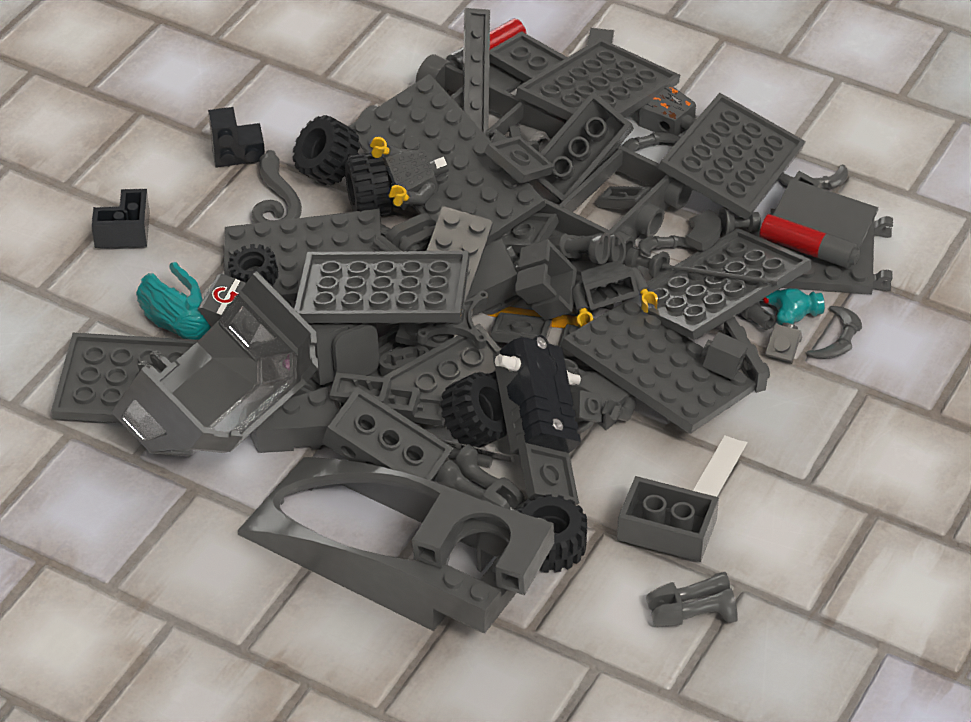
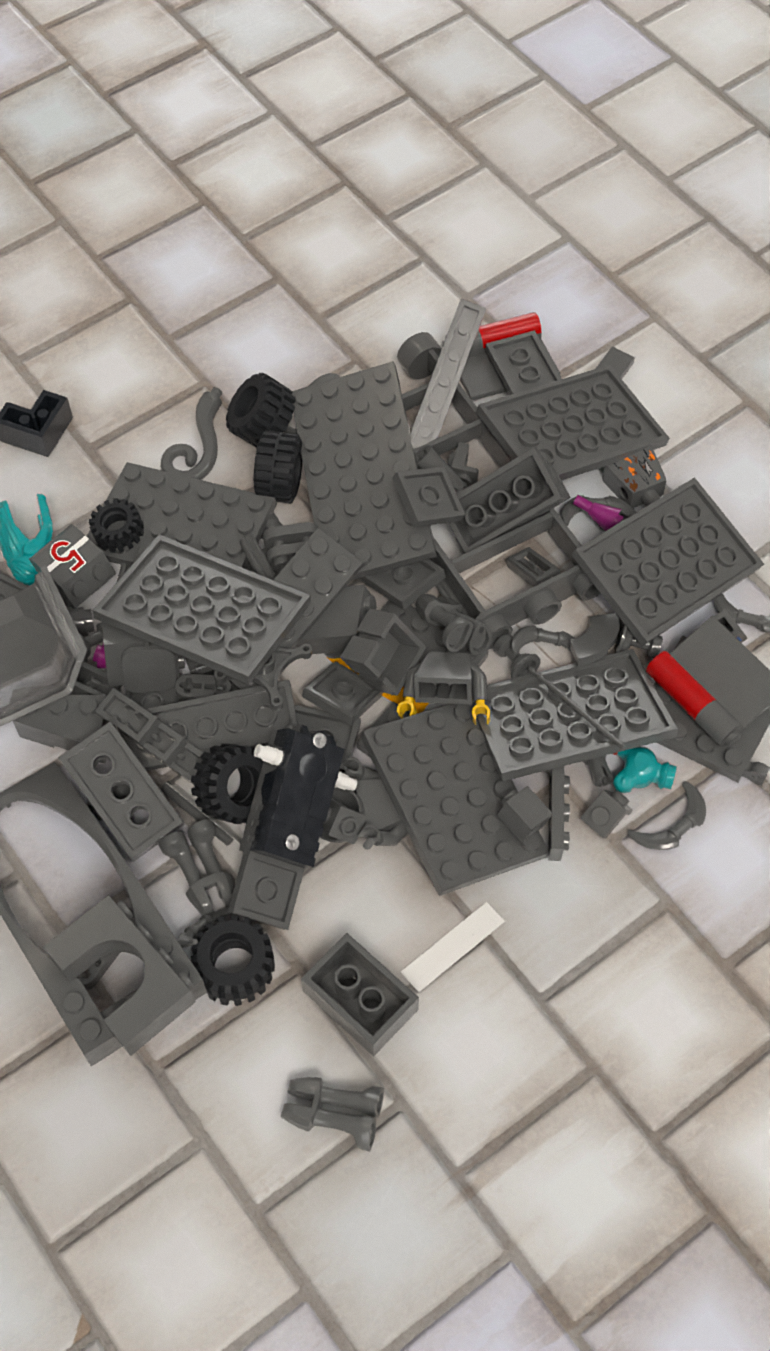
camera: 25 degrees right, 15 degrees up
(234, 143) = (184, 367): black brick -> none
(409, 173) = (314, 474): dark grey torso -> none
(531, 134) = (481, 459): light grey cone -> none
(655, 144) = (602, 514): none -> magenta cone

